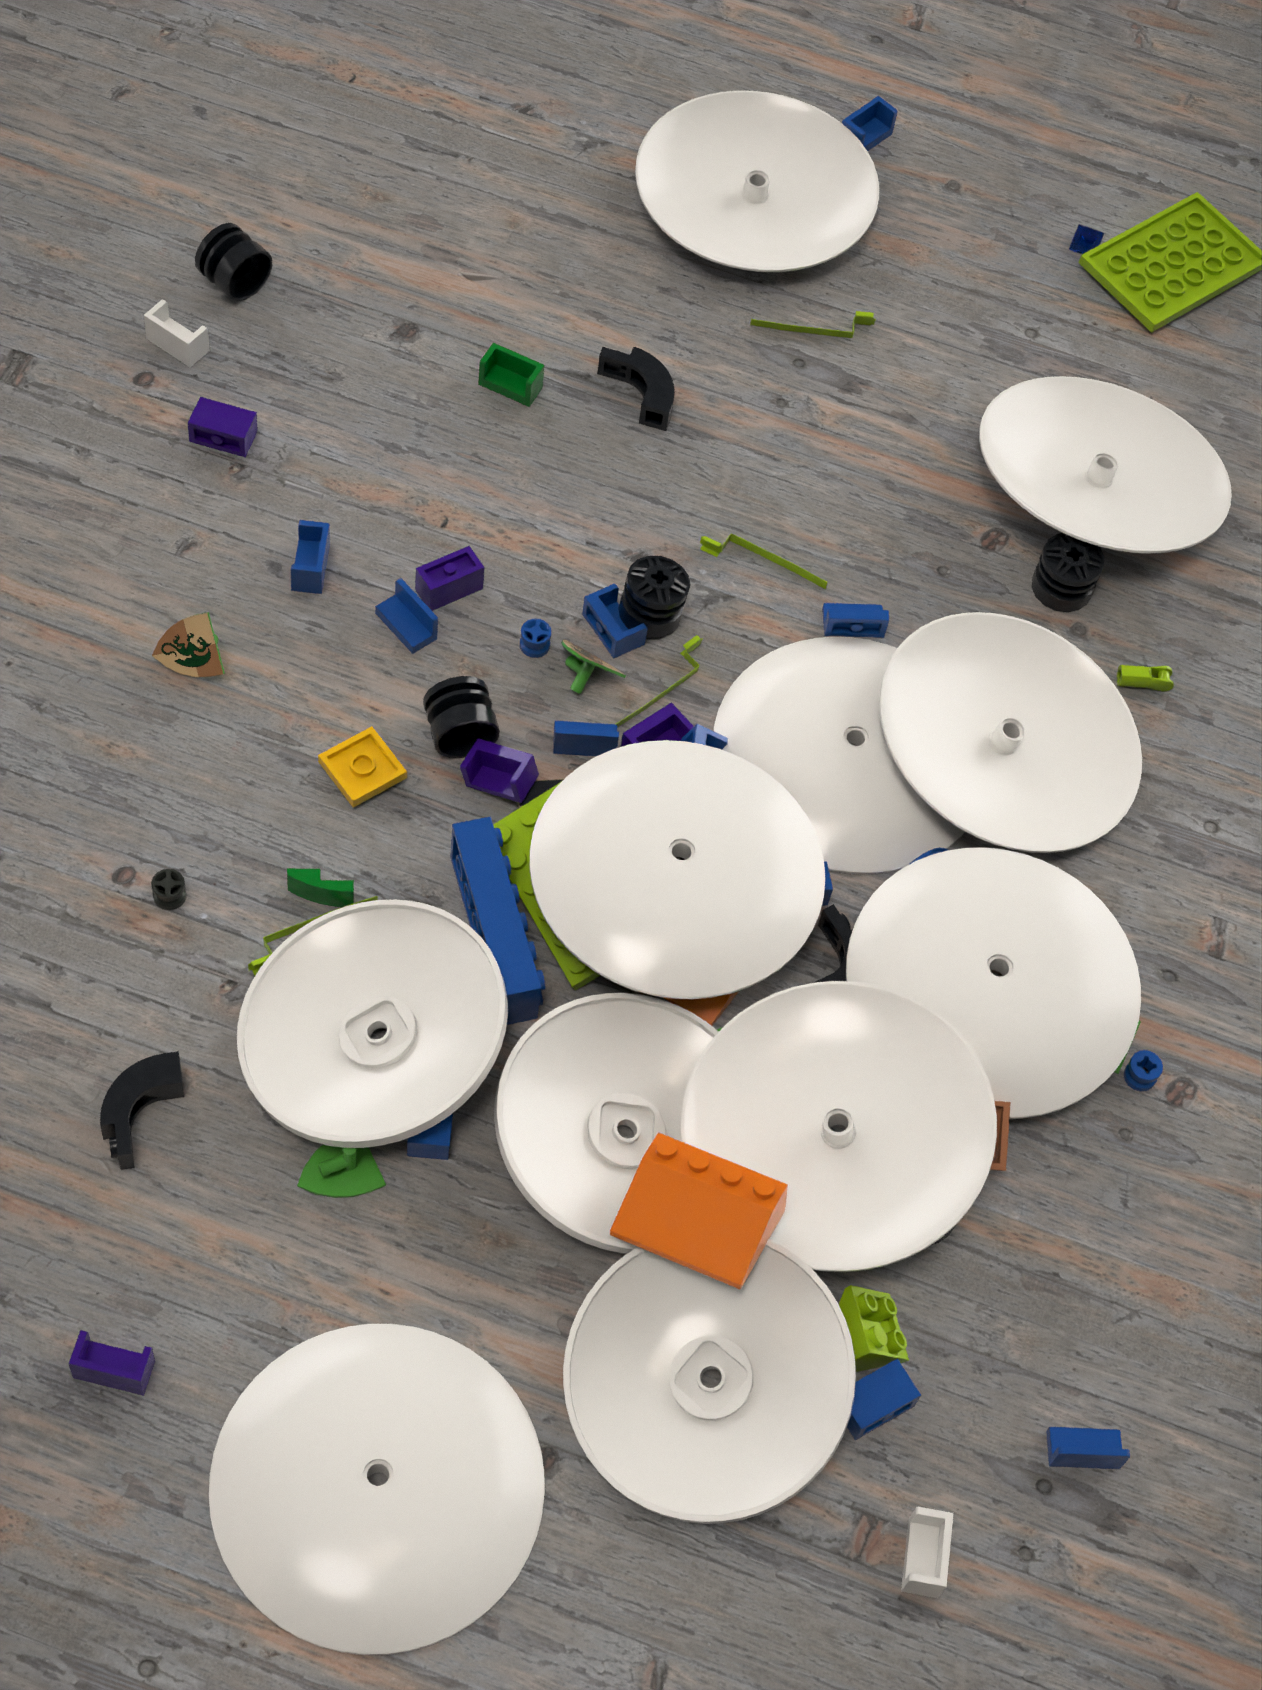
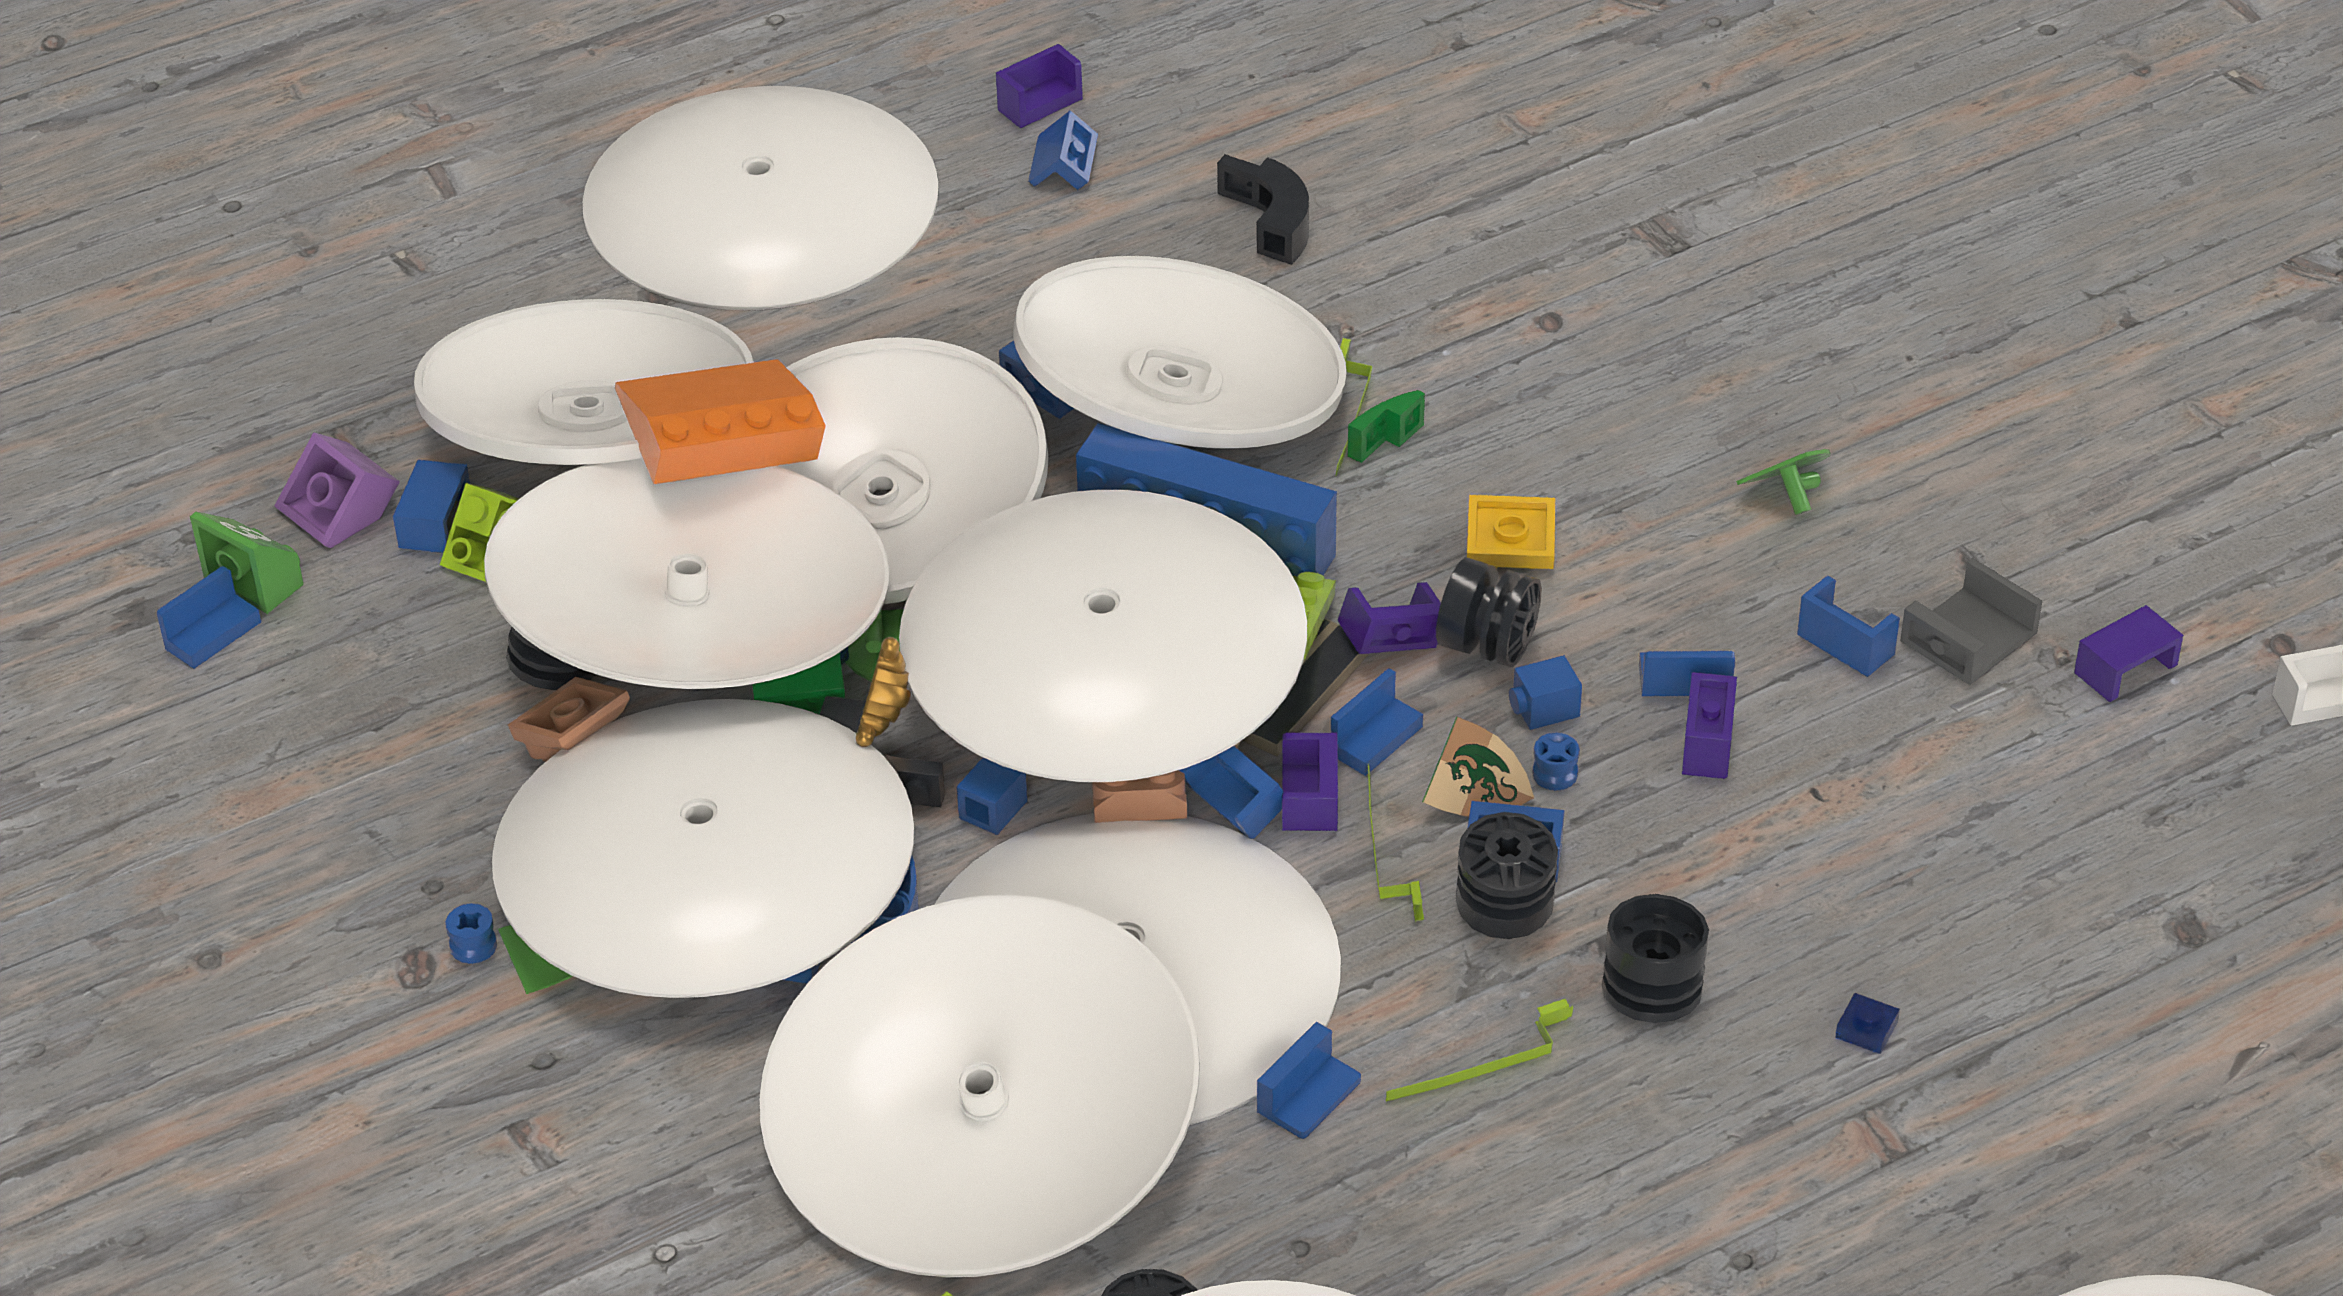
camera: 140 degrees right, 15 degrees down
(163, 883) = (1494, 328): pearl dark grey wheel -> none
(177, 1293) = (1065, 149): none -> blue panel
(252, 511) = (1974, 625): none -> dark grey panel
(489, 666) = (1546, 692): none -> blue brick
(511, 374) = (2010, 972): green panel -> none
(594, 420) = (1867, 1023): none -> clear blue plate
(647, 376) = (1877, 1109): black arch -> none
(651, 503) = (1655, 958): none -> black wheel
(821, 956) = (886, 693): none -> pearl gold piece
(917, 1473) = (335, 490): none -> medium lavender slope
(927, 1552) = (262, 450): white panel -> none
(1029, 1461) = (260, 567): none -> bright green slope

